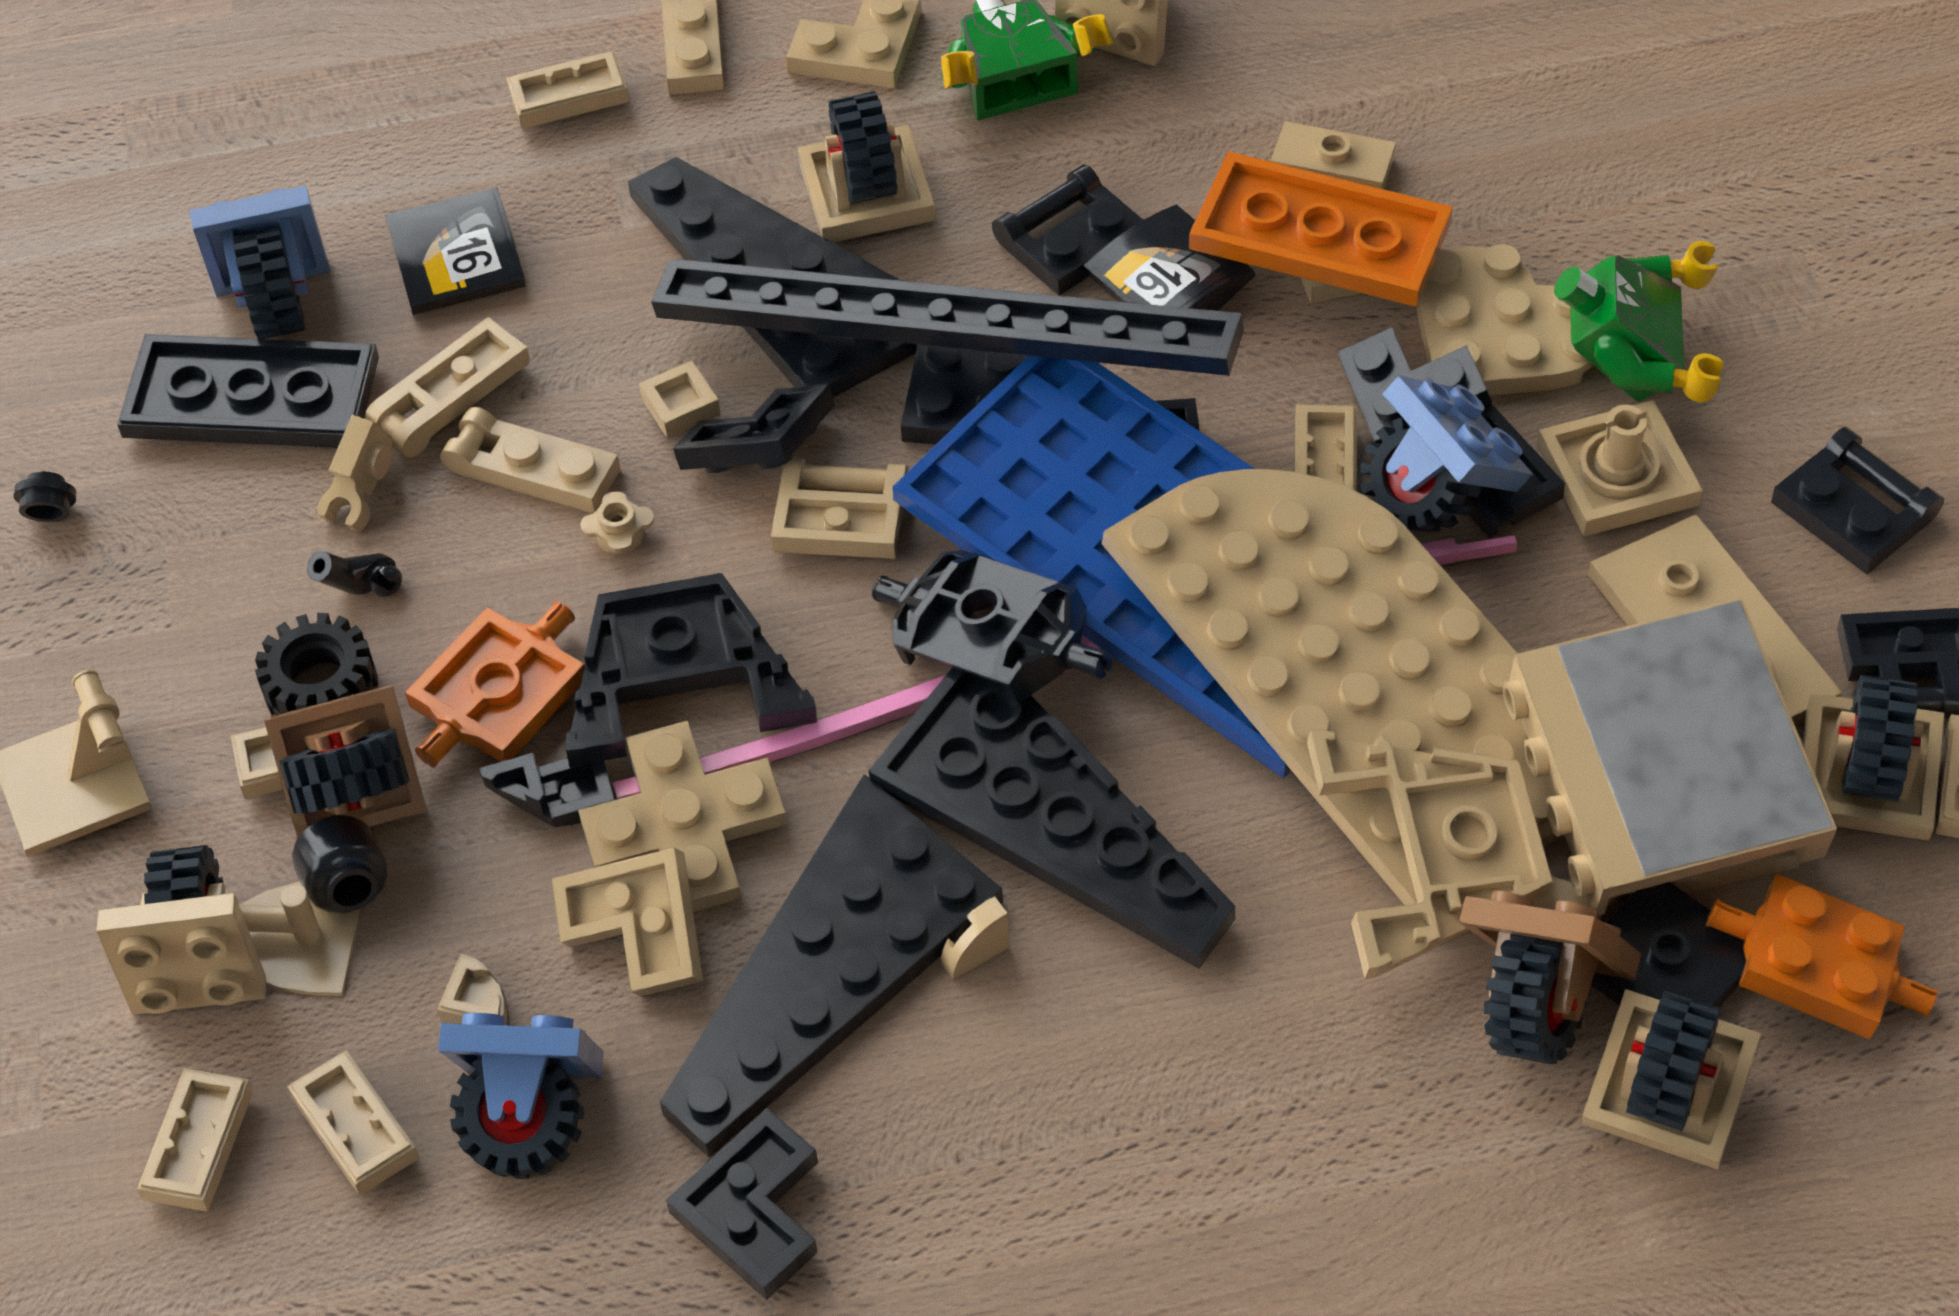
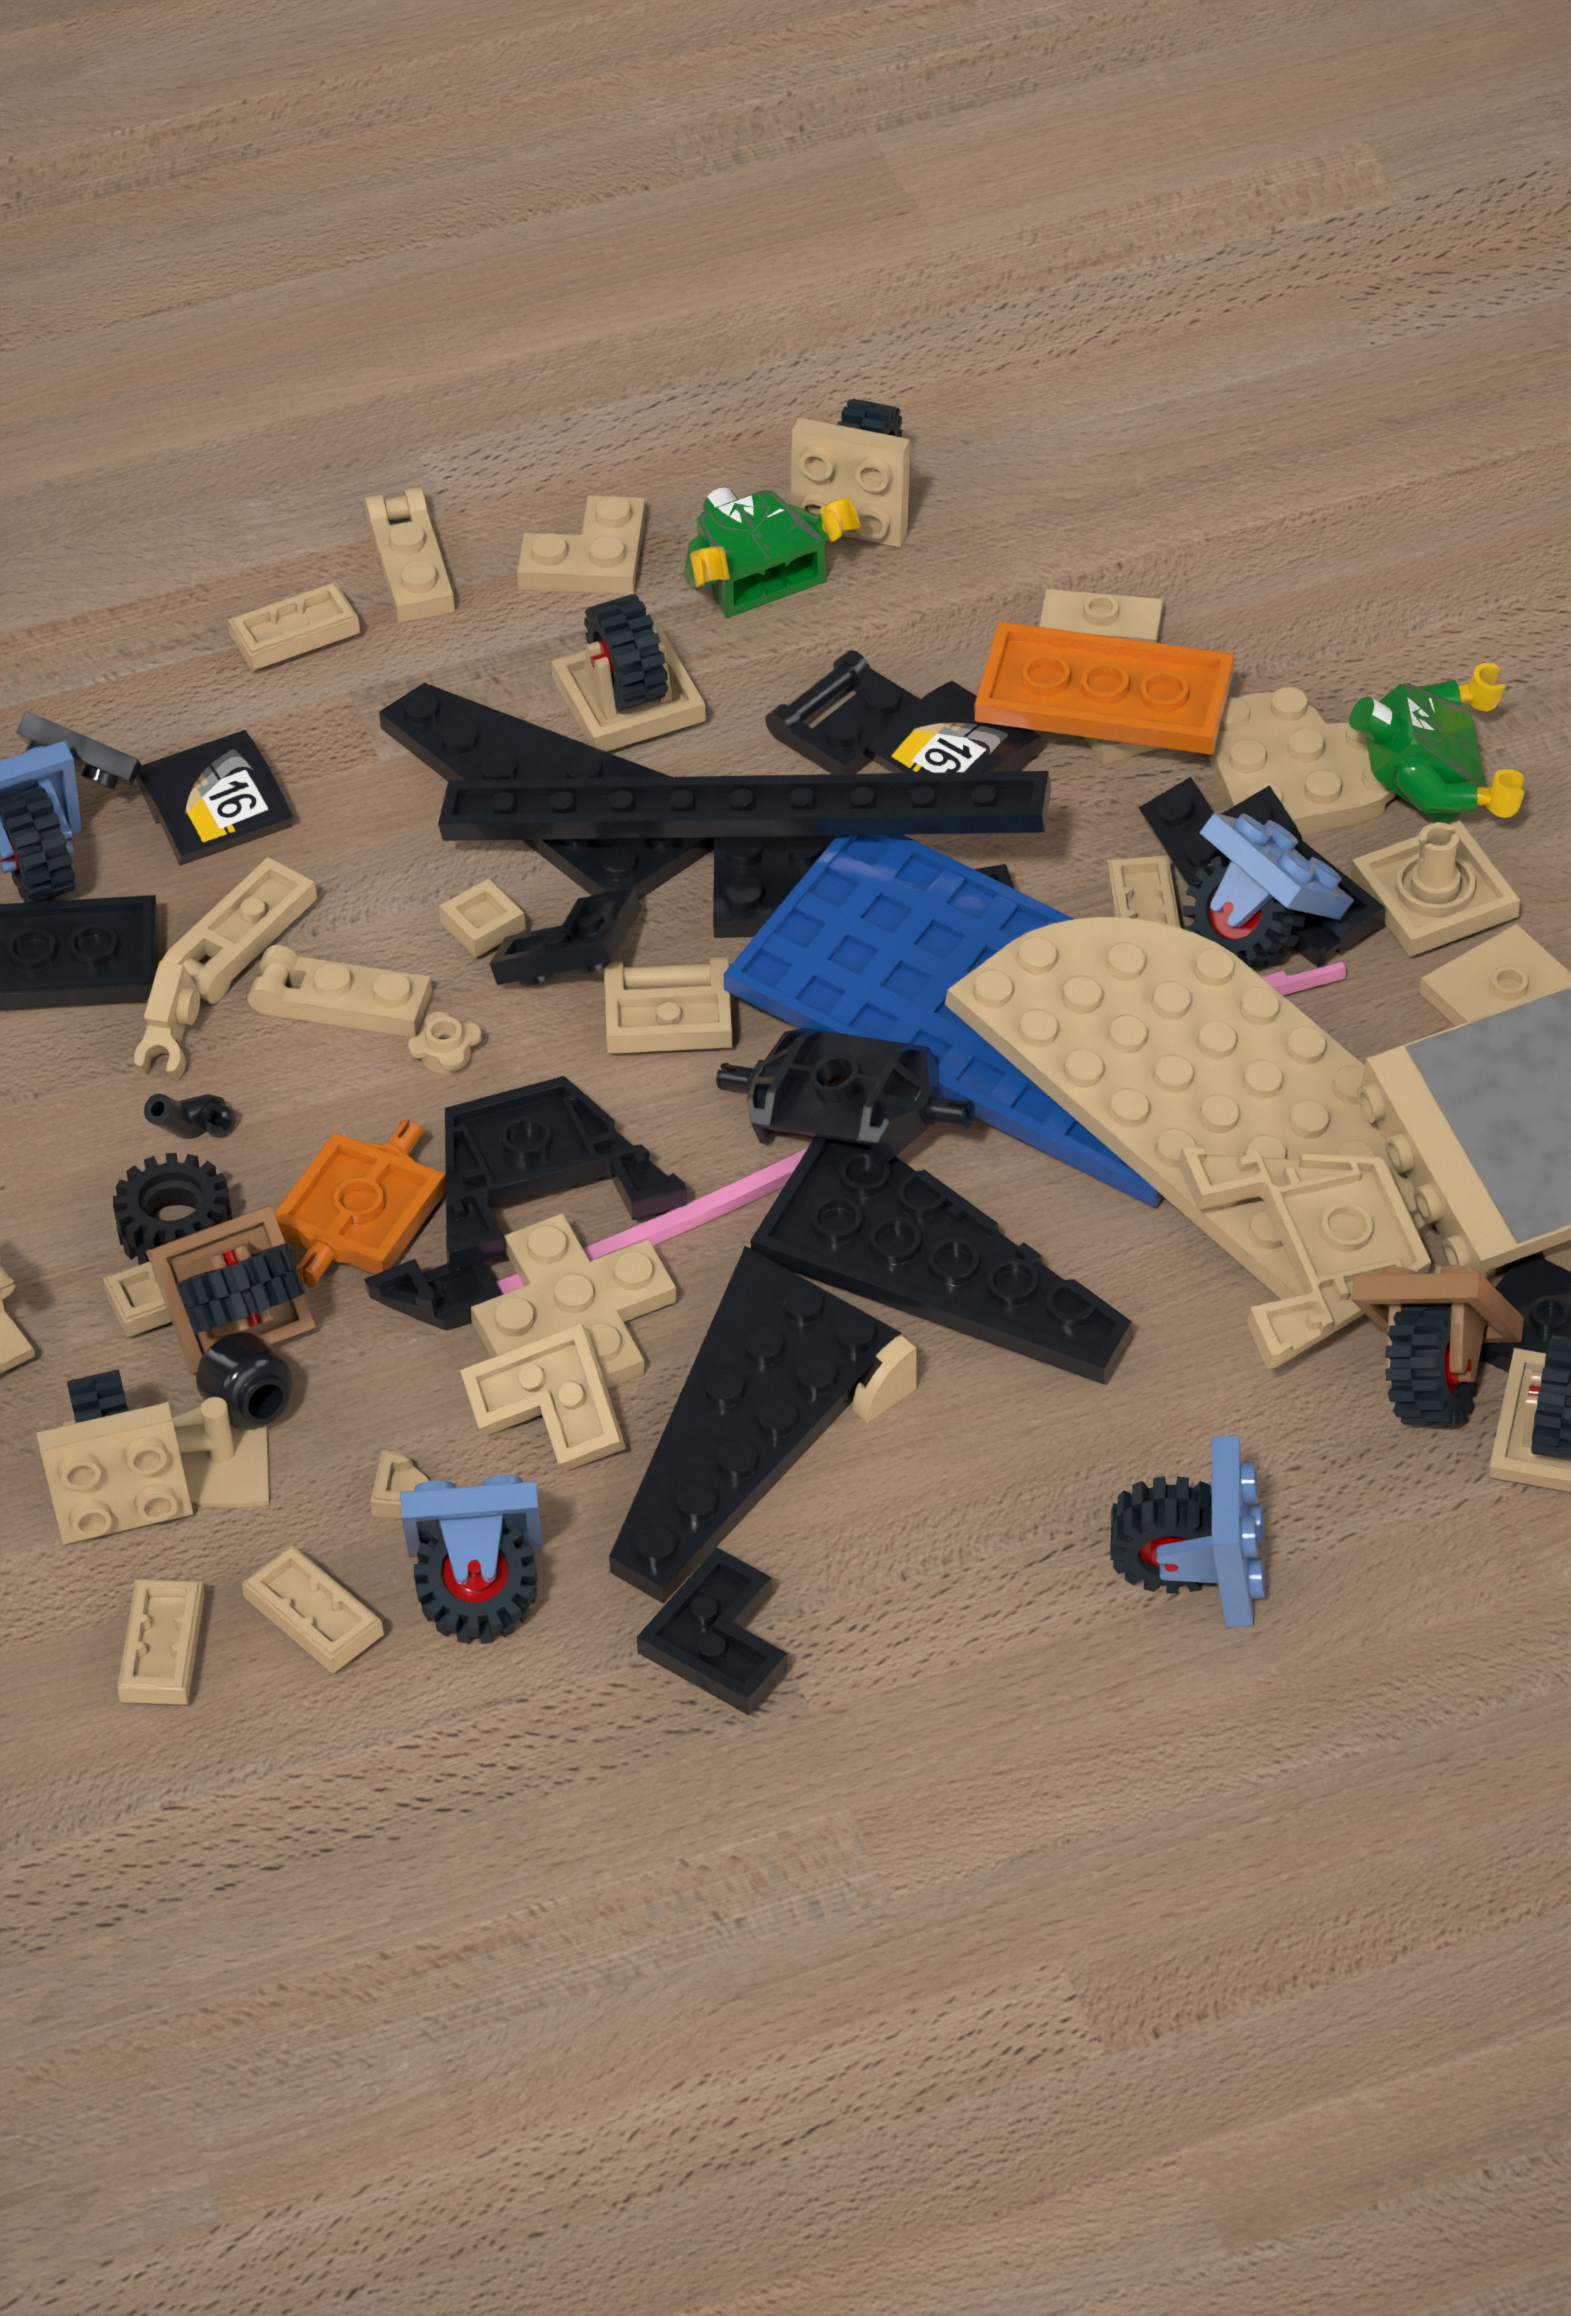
camera: 10 degrees left, 5 degrees down
(348, 208) = (102, 763): none -> black plate
(1261, 1160) = (1196, 1533): none -> plate

